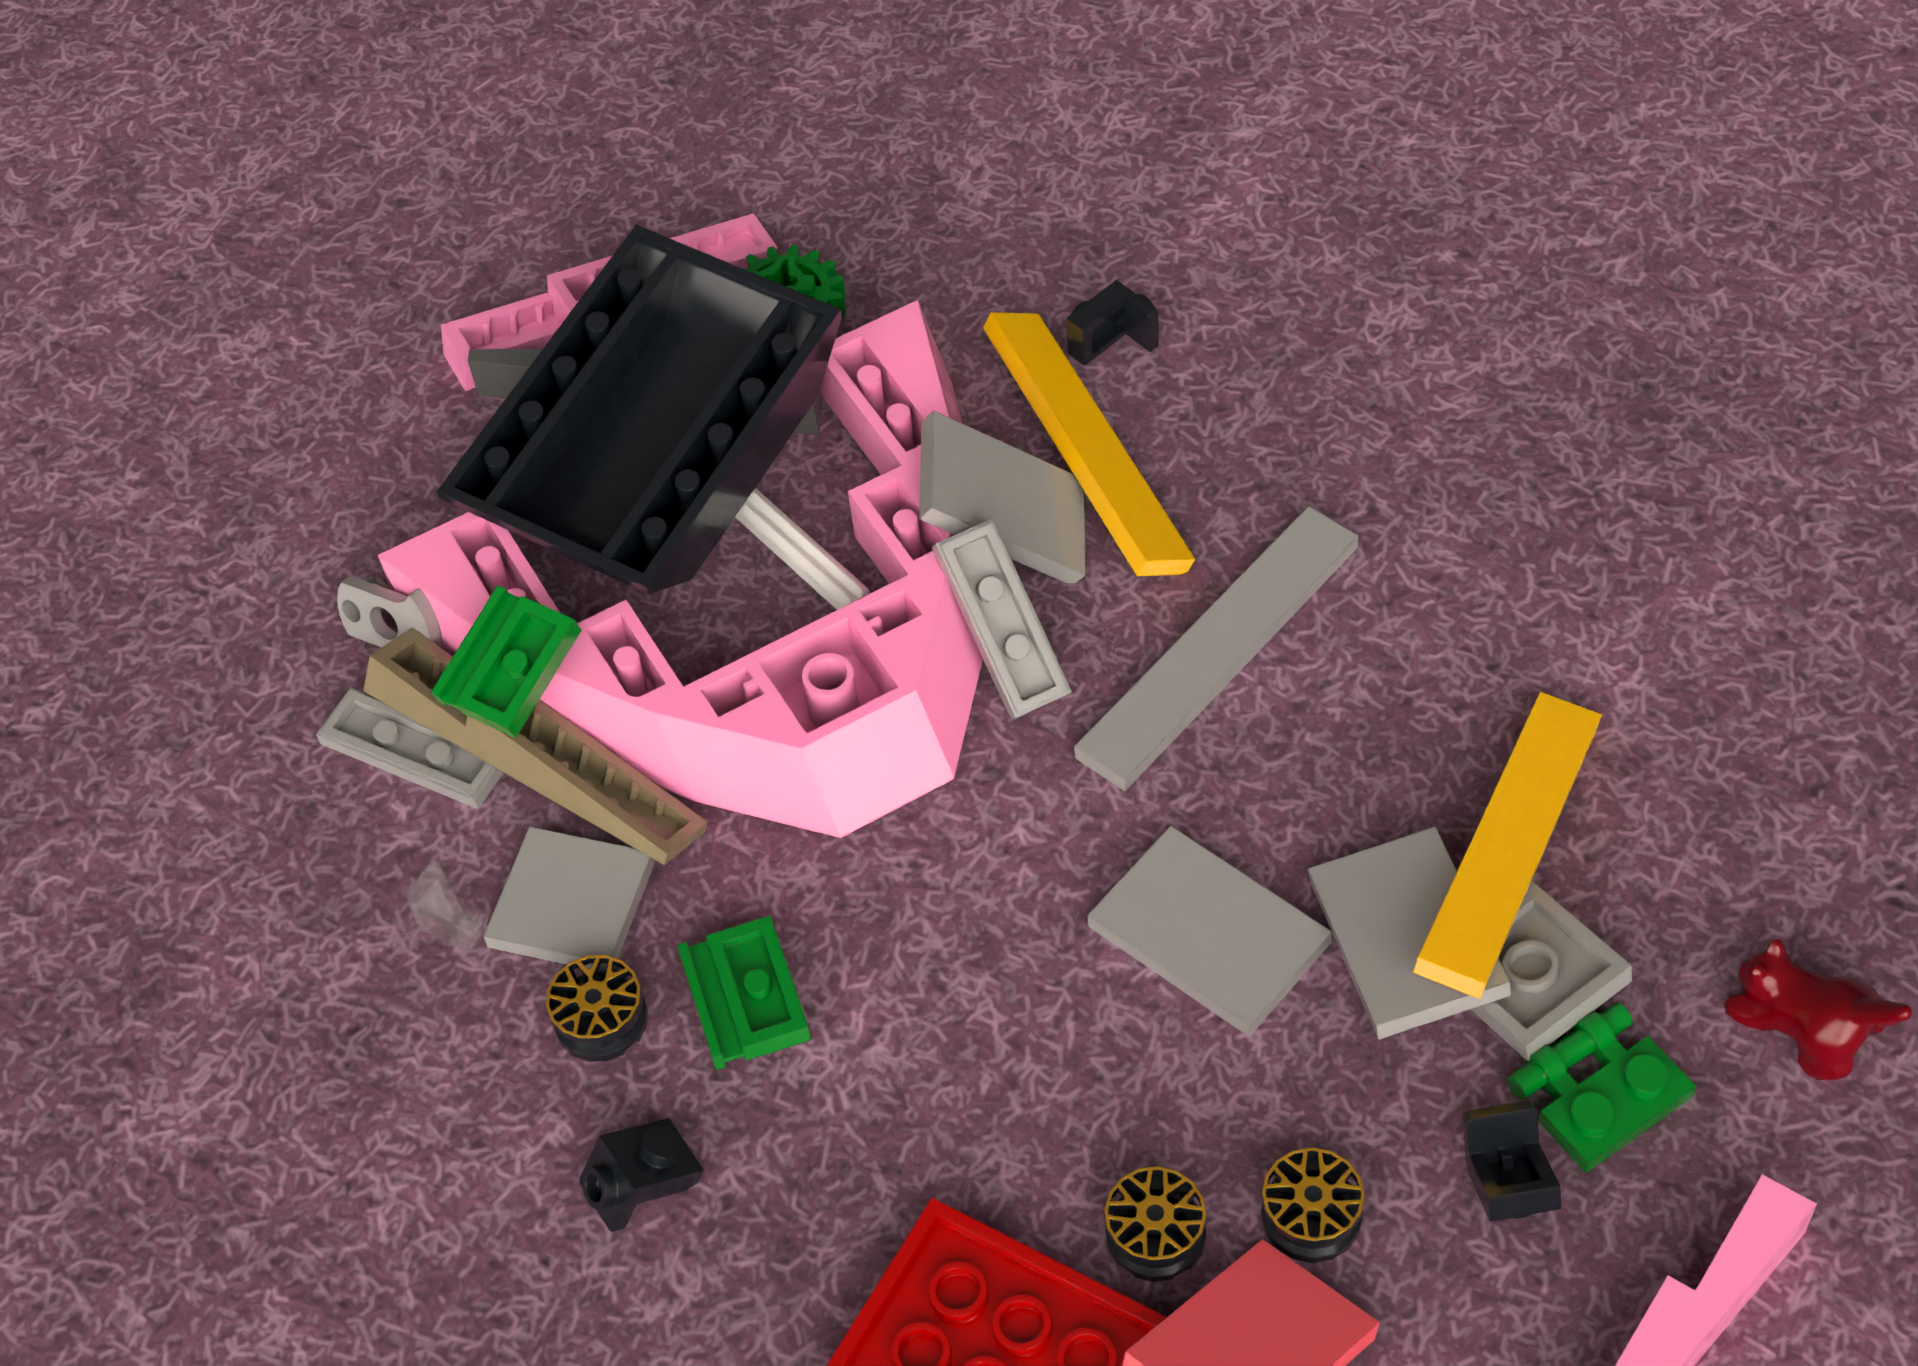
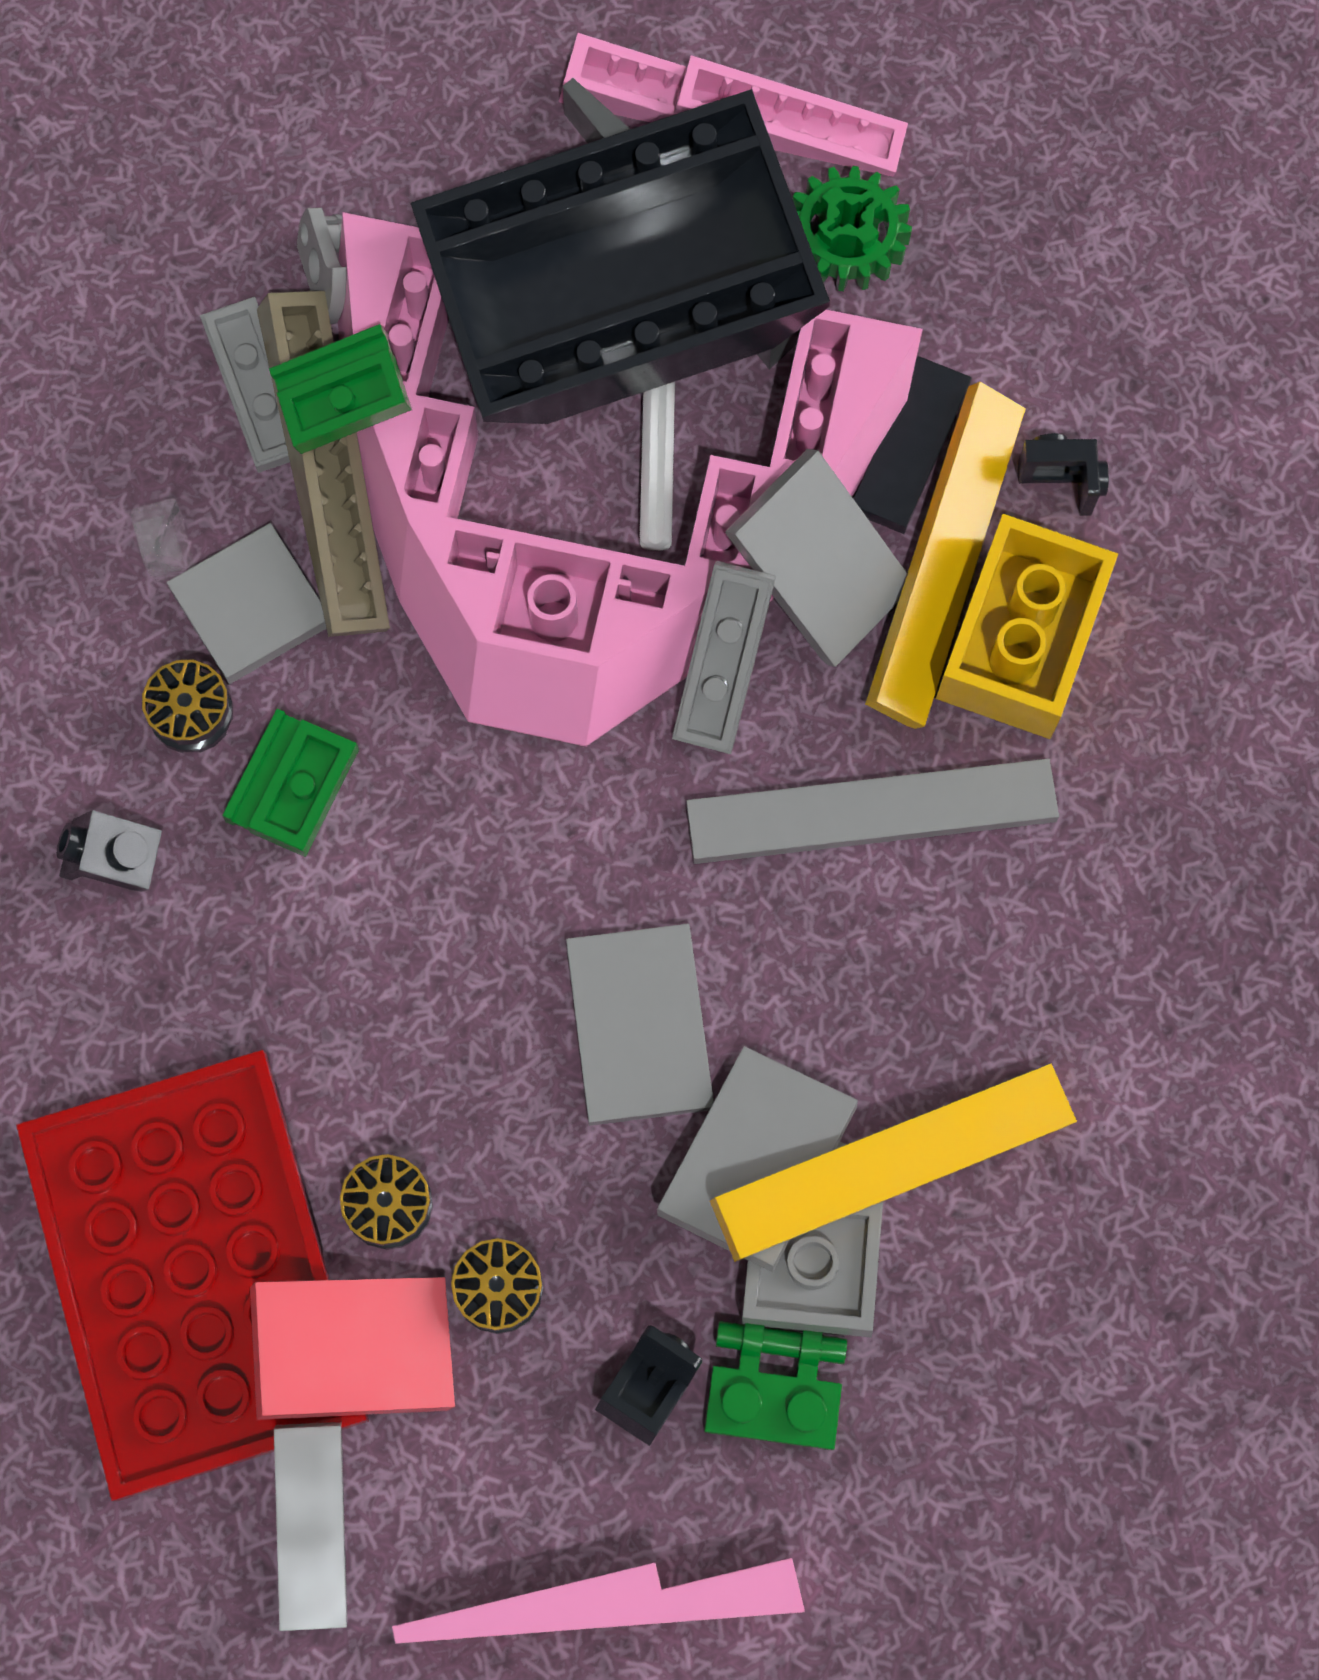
camera: 35 degrees right, 20 degrees up
(981, 389) = (912, 445): none -> black tile
(1200, 431) = (1027, 626): none -> yellow brick
(1819, 1011) = (973, 1485): dark red animal -> none

